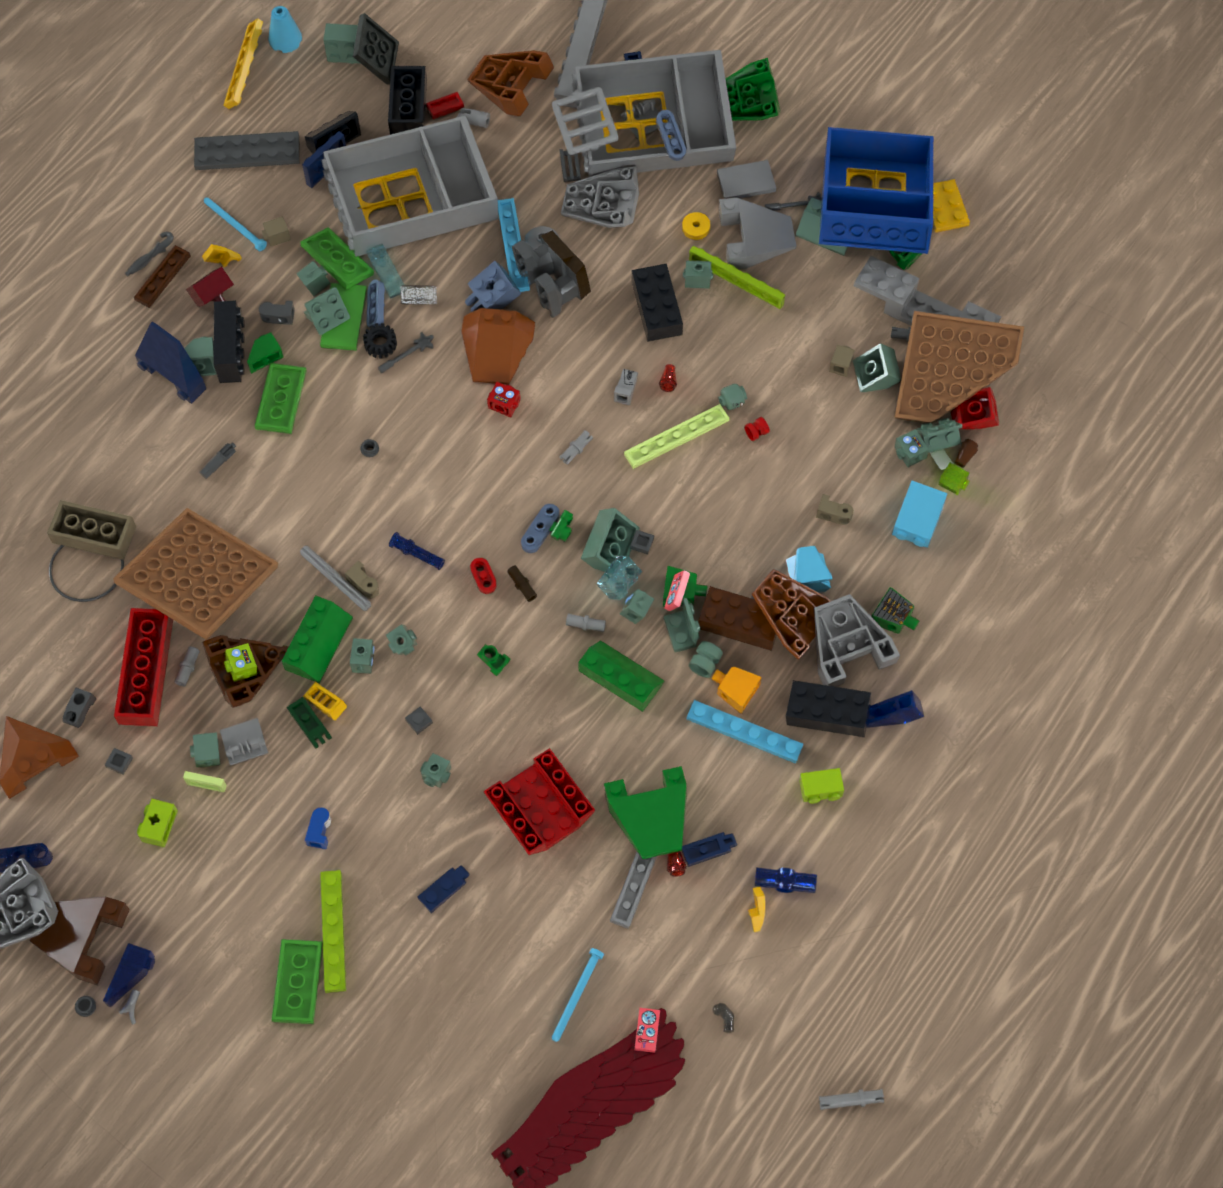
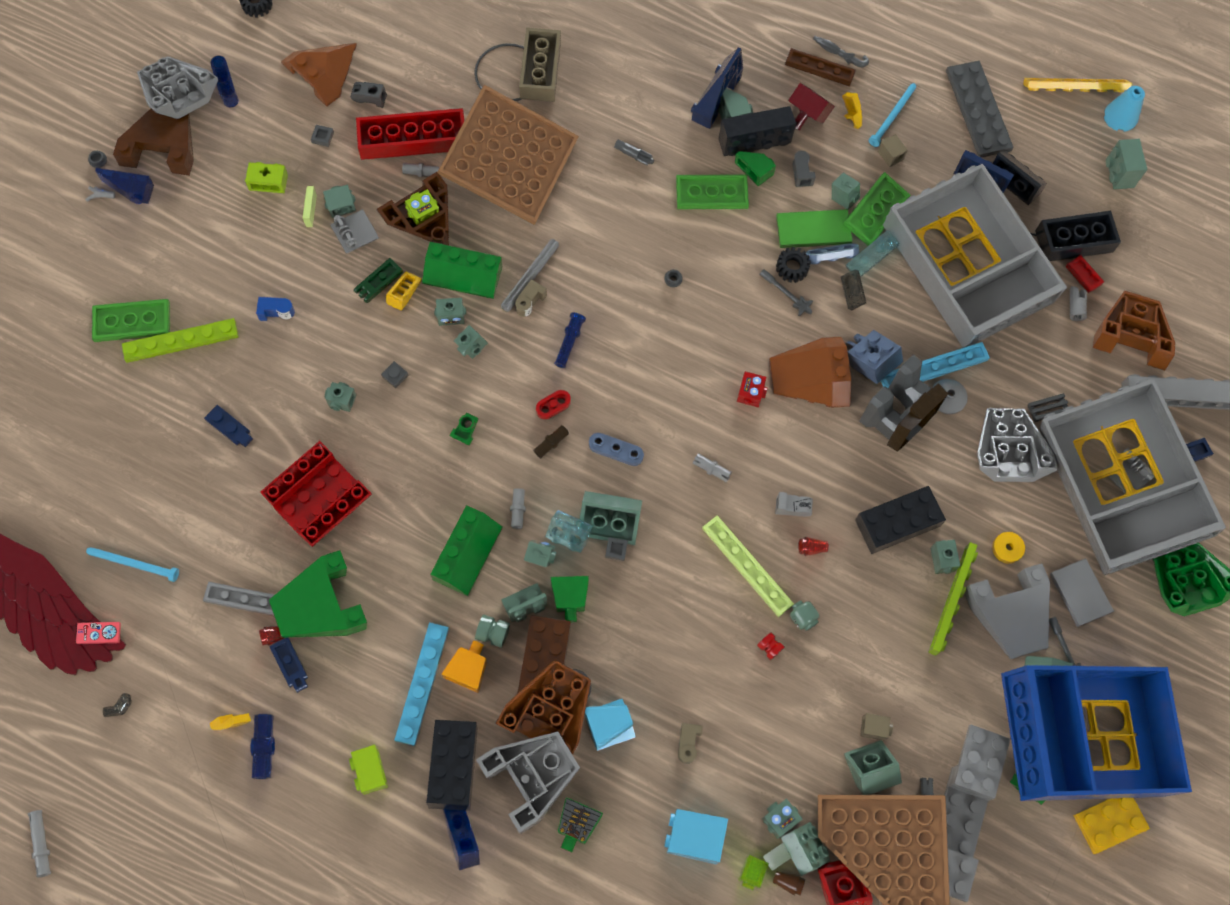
camera: 75 degrees right, 5 degrees up
(326, 311) = (809, 208): sand green bracket -> none
(375, 48) = (1128, 191): pearl dark grey plate -> none
(560, 529) = (616, 467): green plate -> none
(567, 135) = (1095, 425): light grey bar -> none
(671, 128) = (1107, 488): sand blue plate -> none
(677, 590) = (557, 587): coral tile -> none

